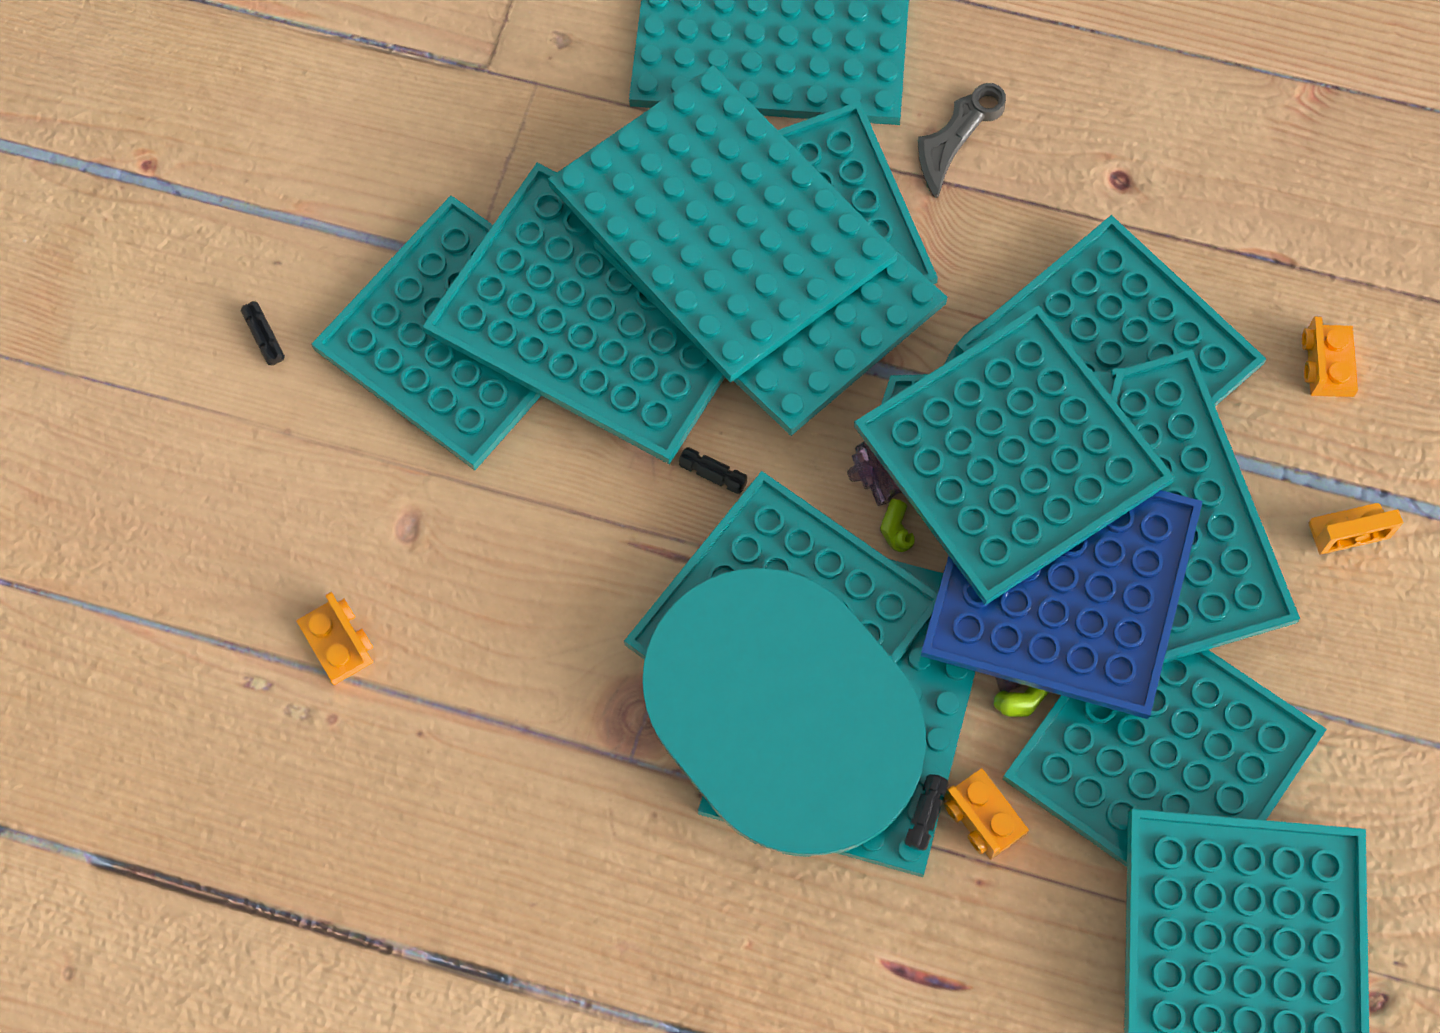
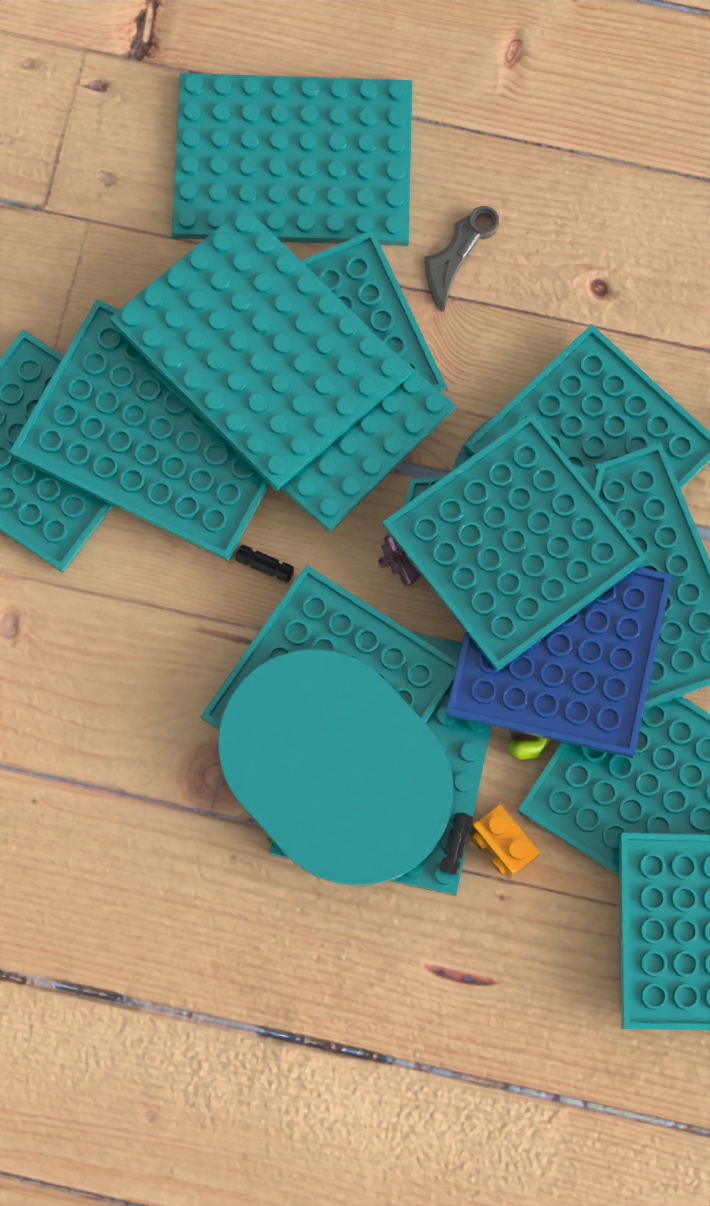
camera: 10 degrees left, 5 degrees up
(892, 527) = (418, 607): lime arm -> none

